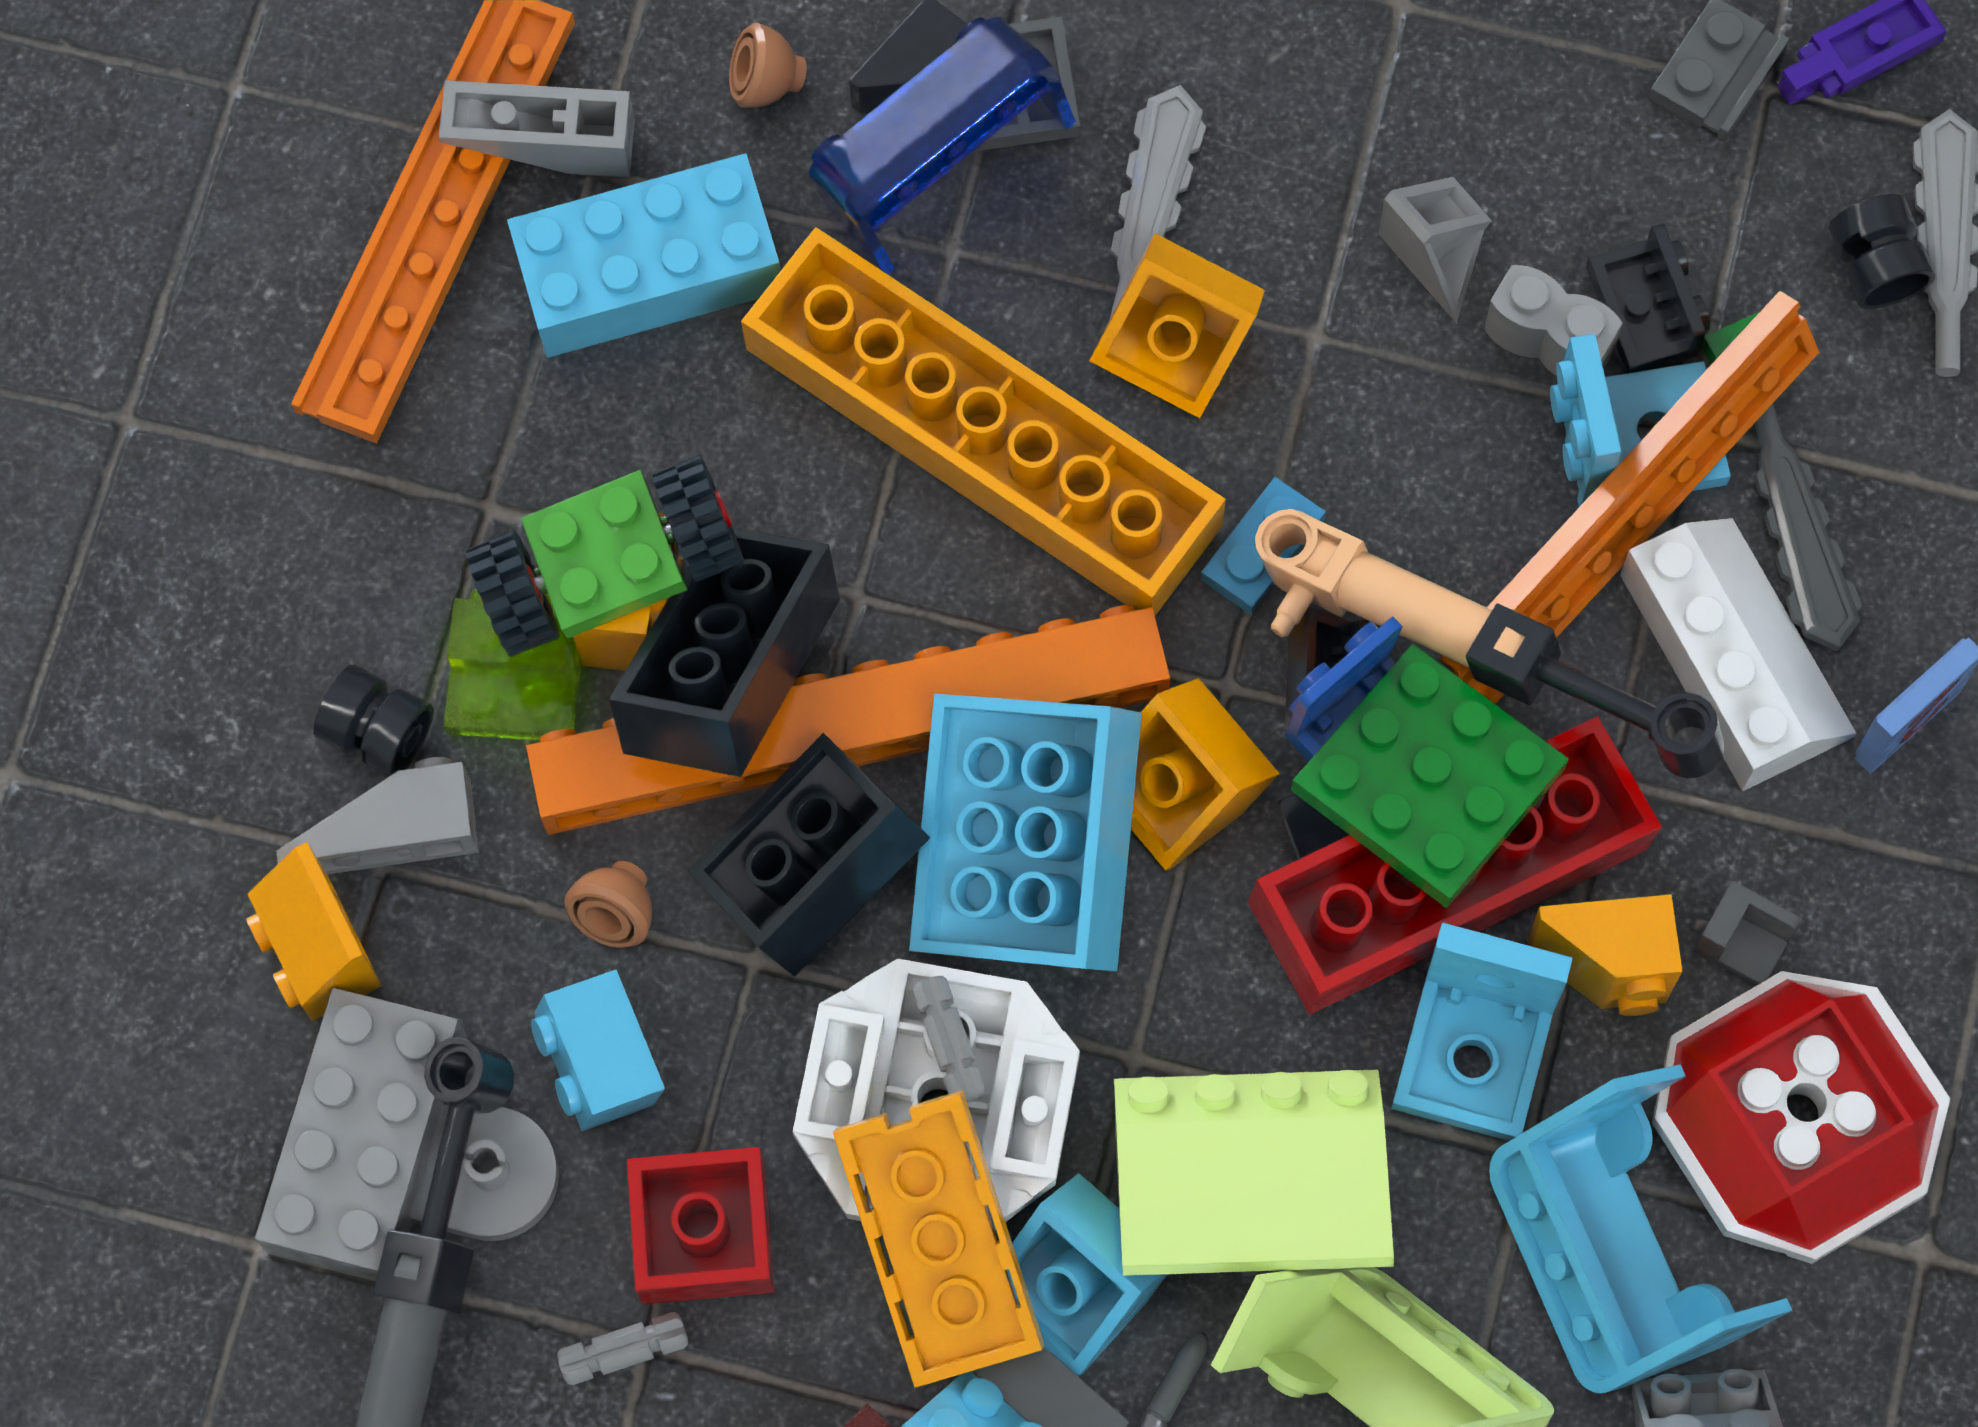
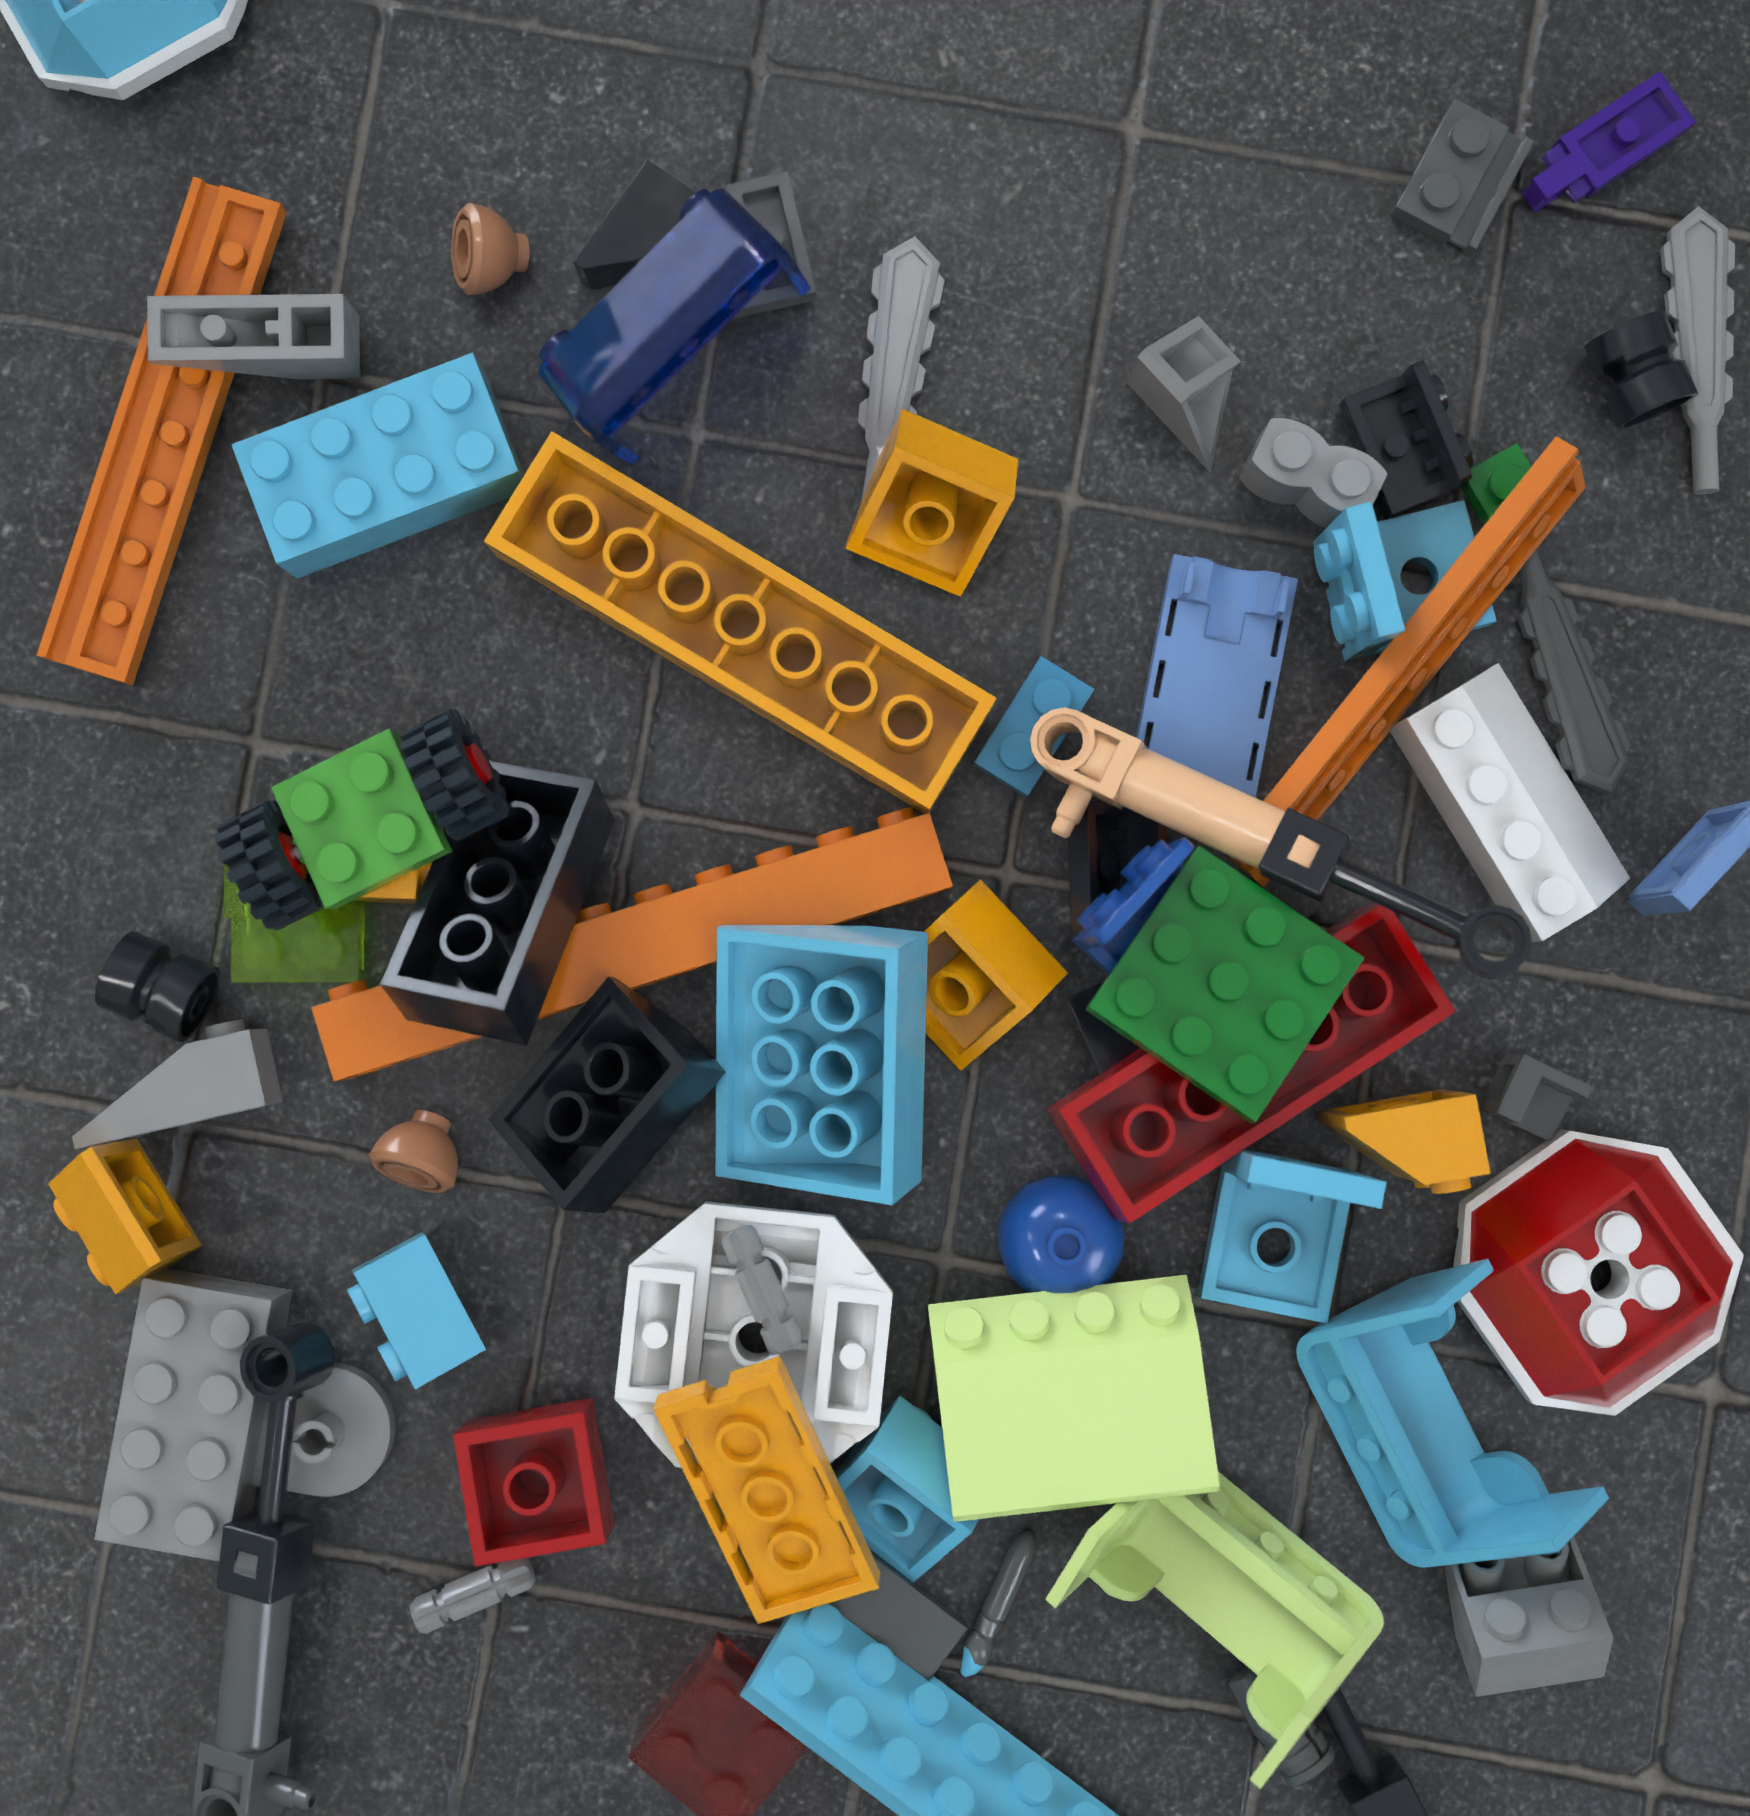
camera: 10 degrees left, 15 degrees up
(1254, 1029) = (1059, 1236): none -> blue cylinder
(1451, 493) = (1217, 668): none -> medium blue piece

